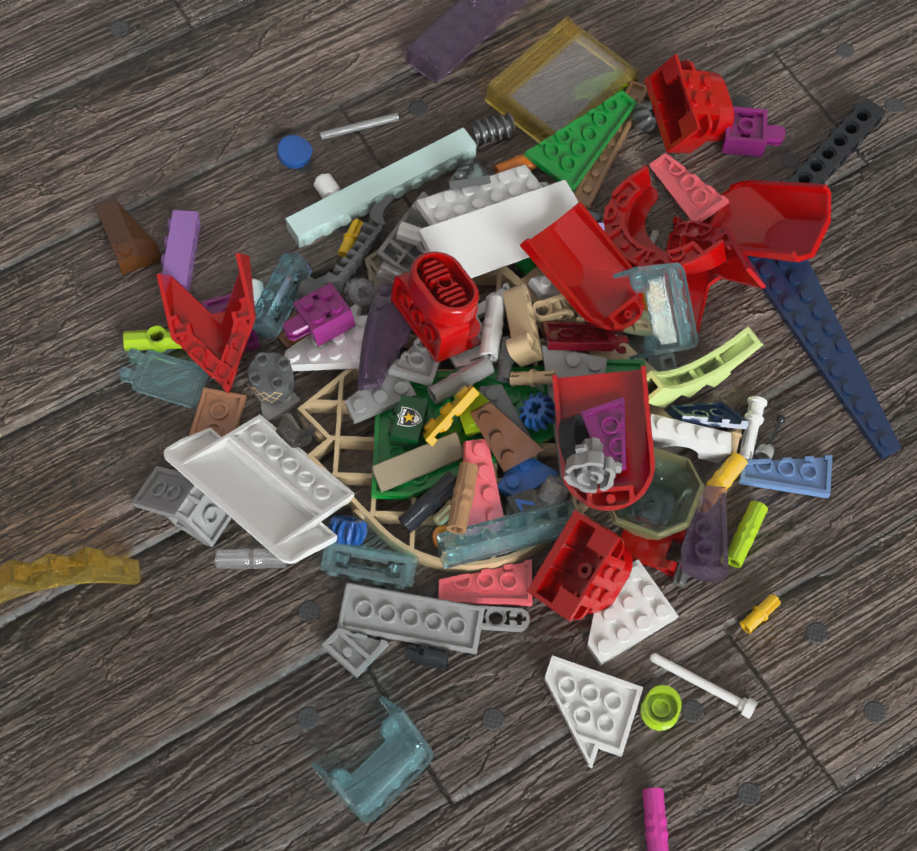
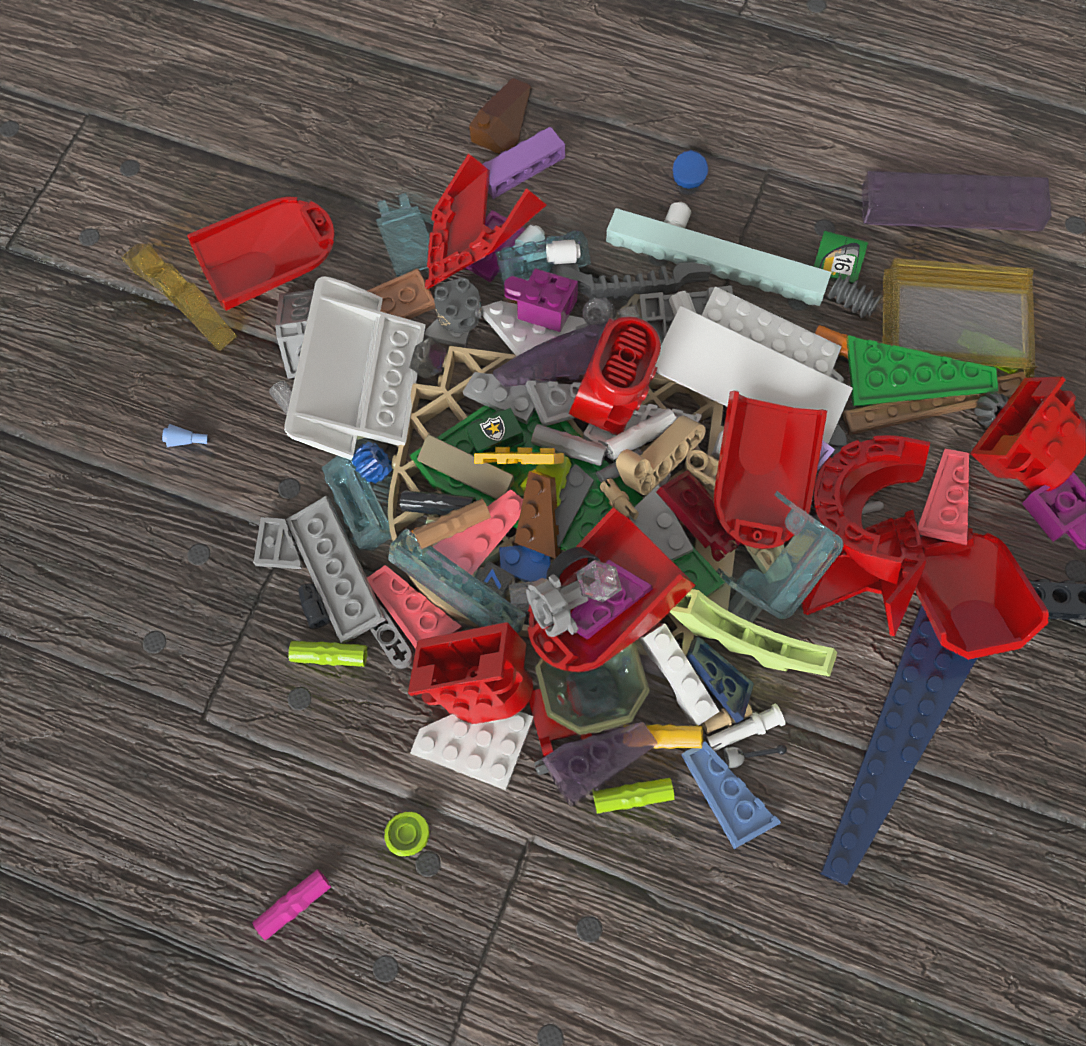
camera: 60 degrees right, 5 degrees up
(85, 484) = (262, 248): none -> red windscreen
(145, 340) = (421, 196): lime piece -> none
(189, 665) = (178, 436): none -> light blue cone
(296, 275) = (562, 252): none -> white brick
(350, 237) = (646, 268): yellow axle -> none
(359, 126) = (759, 196): light grey bar -> none
(386, 771) = (181, 645): clear light blue windscreen -> none
(451, 114) = (840, 256): none -> slope
(469, 175) = (781, 309): dark grey wing -> none
(476, 670) = (328, 653): none -> lime axle
(530, 410) = (583, 523): blue gear -> none
(593, 706) = (365, 774): white wing -> none
(598, 424) = (598, 581): none -> clear brick
(744, 705) = (463, 909): white piece -> none
(760, 613) = (565, 862): yellow axle -> none

